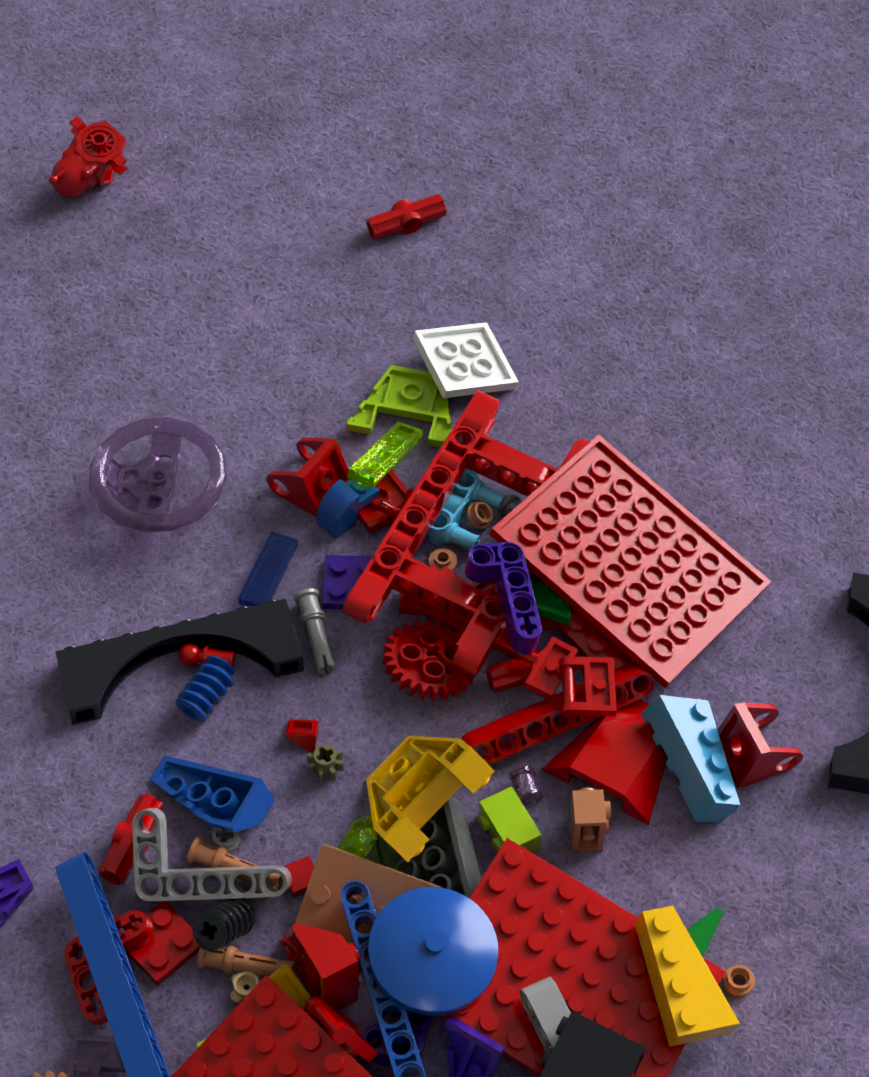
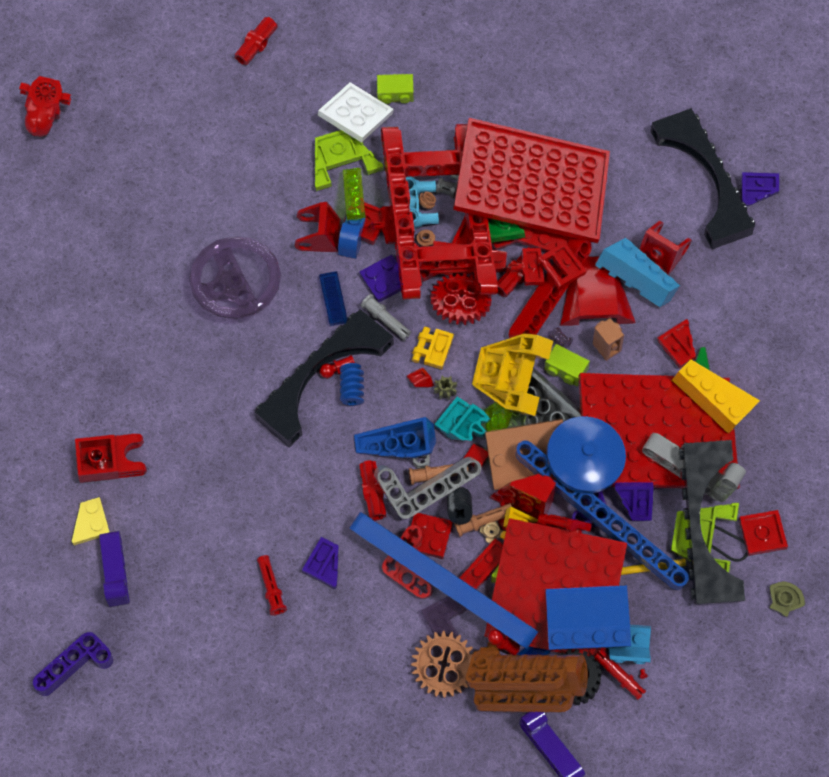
camera: 30 degrees left, 10 degrees up
(189, 1028) = (483, 565): none -> red plate
(313, 815) = (462, 421): none -> teal plate
(353, 708) = (438, 349): none -> yellow plate
(496, 568) = (508, 251): dark purple beam -> none
(539, 358) = (395, 88): none -> lime piece
(689, 883) = (678, 344): none -> red wing
(743, 973) = (737, 374): nougat plate -> none

